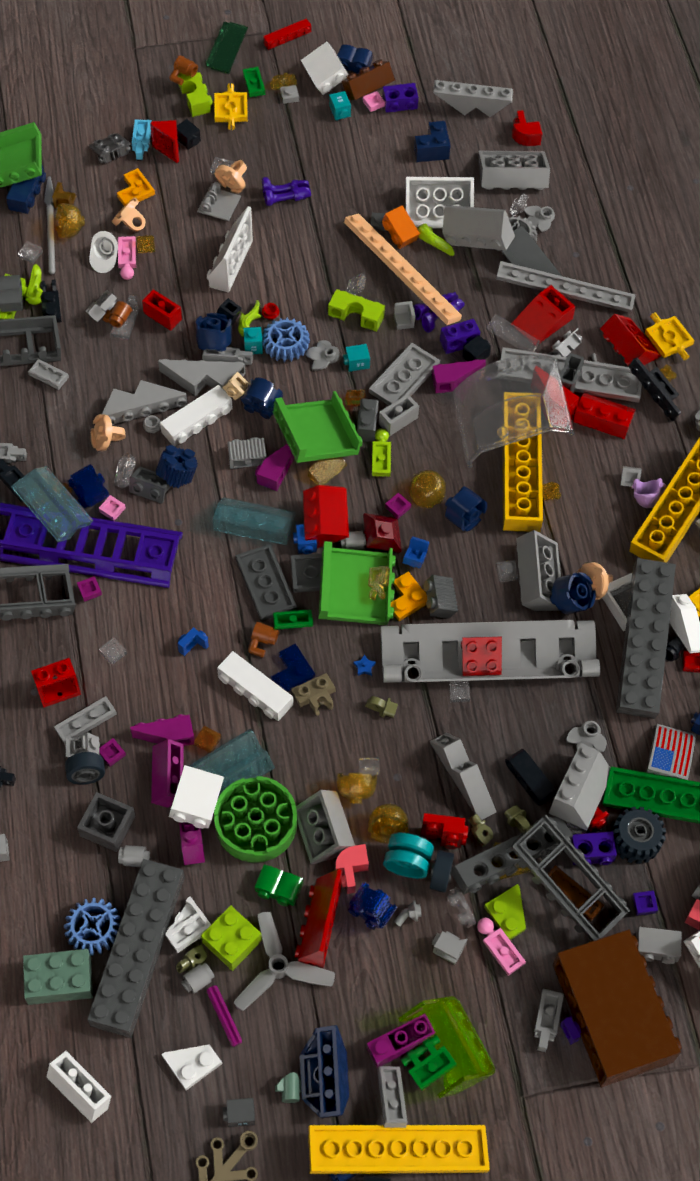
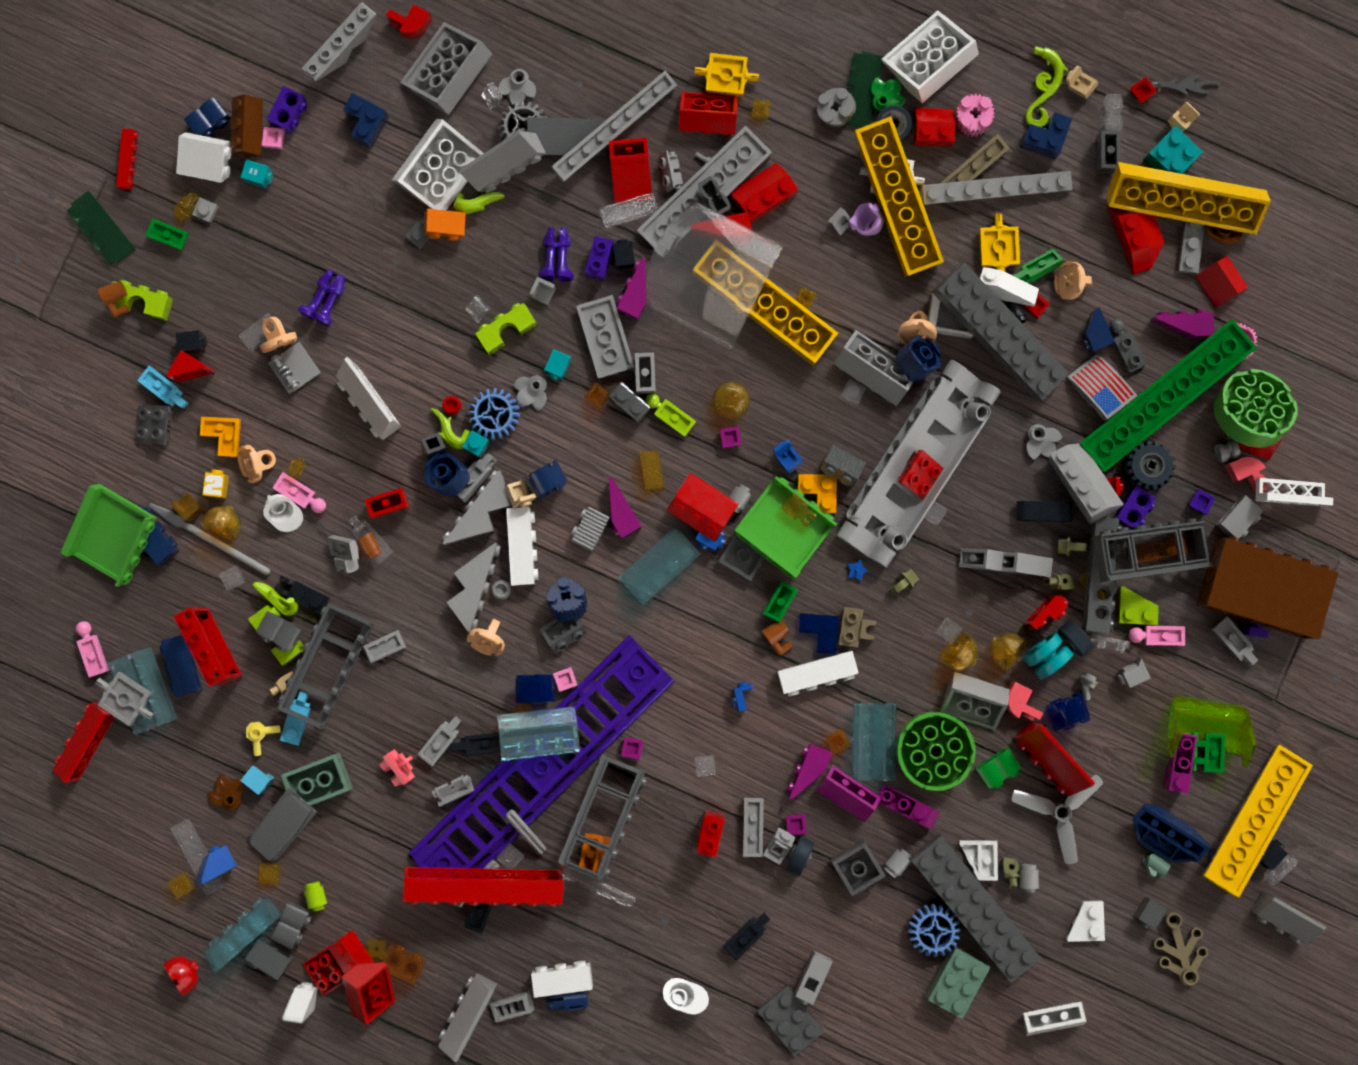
camera: 55 degrees left, 25 degrees up
(94, 204) = (215, 484): none -> brick
(124, 470) = (535, 645): clear plate -> none
(196, 797) = (892, 789): white brick -> none
(224, 1016) = (1069, 876): magenta axle -> none
(231, 107) = (184, 278): yellow plate -> none
(231, 938) = (1016, 832): lime brick -> none
(265, 582) = (725, 597): dark grey tile -> none
(317, 429) = (612, 454): bright green panel -> none
(382, 532) = (748, 470): dark red slope -> none
(392, 1097) = (1217, 798): light grey tile -> none
(403, 269) = (491, 256): light nougat plate -> none
(465, 509) = (778, 386): dark blue brick -> none
(658, 387) = (773, 127): black bracket -> none

